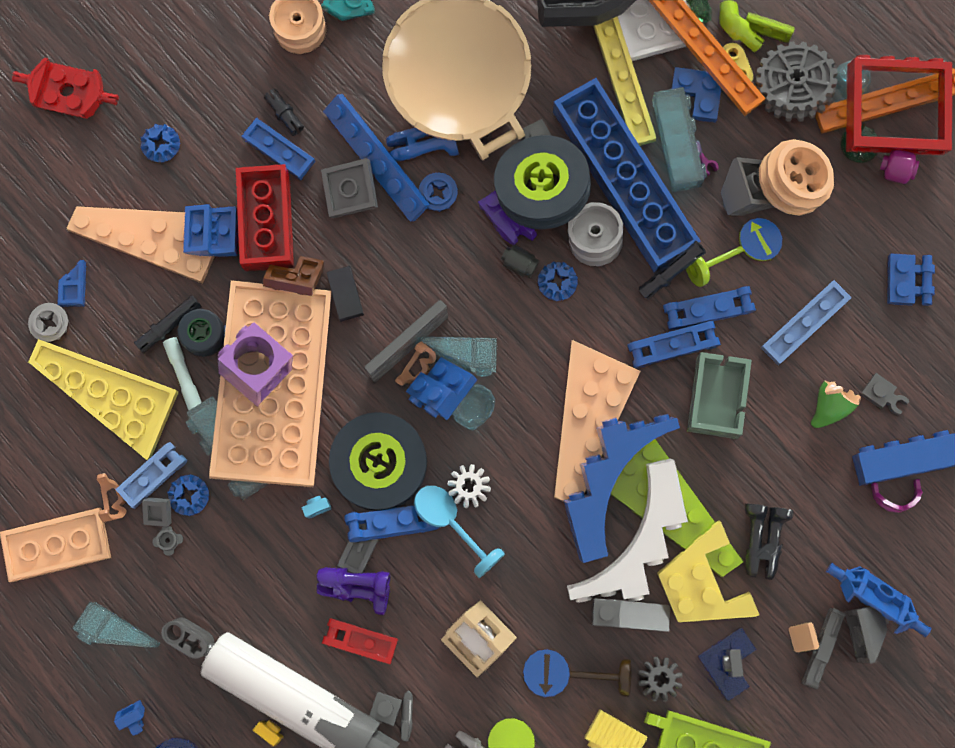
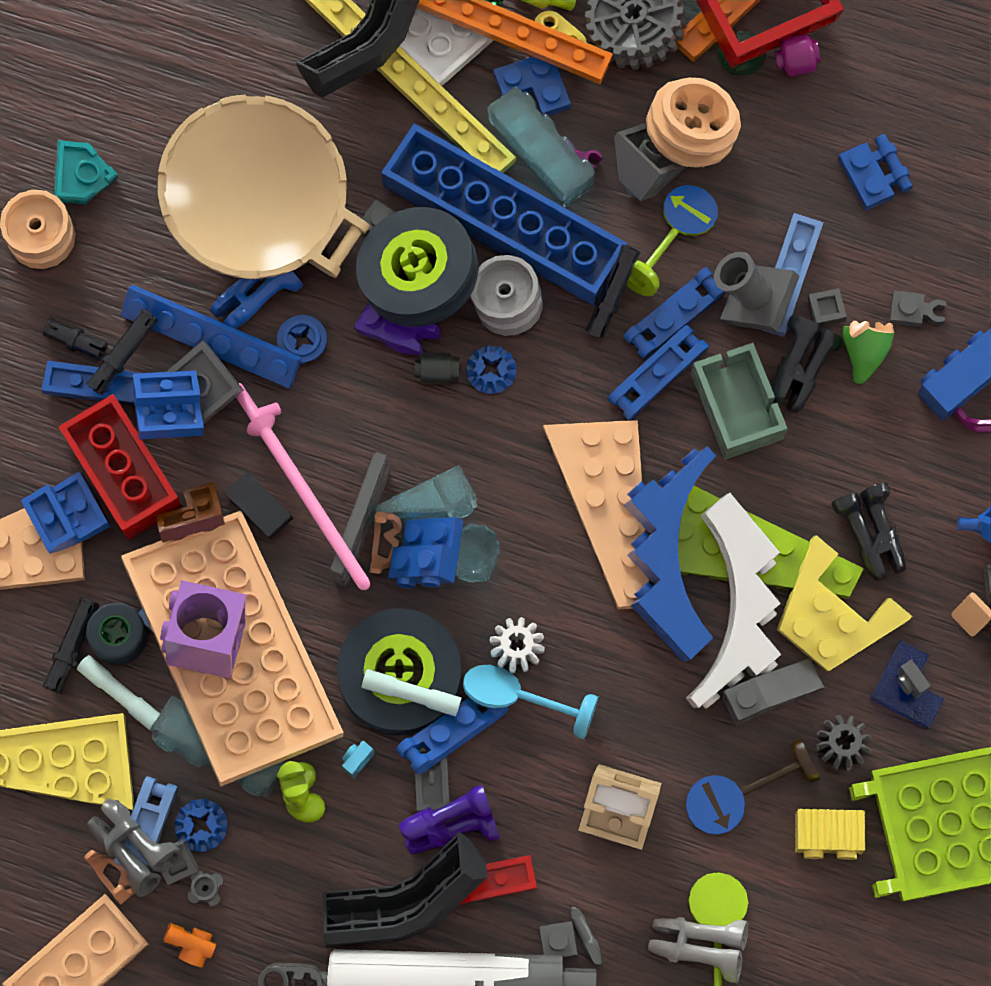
camera: 30 degrees left, 5 degrees down
(125, 469) = (158, 856): none -> dark grey piece
(138, 576) = (195, 945): none -> orange plate
(260, 502) = (295, 783): none -> lime piece
(293, 628) = (408, 906): none -> black piece
(307, 138) = (121, 353): none -> black pin
(318, 191) = (167, 404): none -> blue slope
(376, 238) = (261, 425): none -> bright pink piece
(386, 493) = (391, 686): none -> light aqua piece
(768, 395) = (790, 372): none -> black piece
(773, 323) = (756, 292): none -> dark grey plant
(820, 360) = (827, 307): none -> dark grey plate

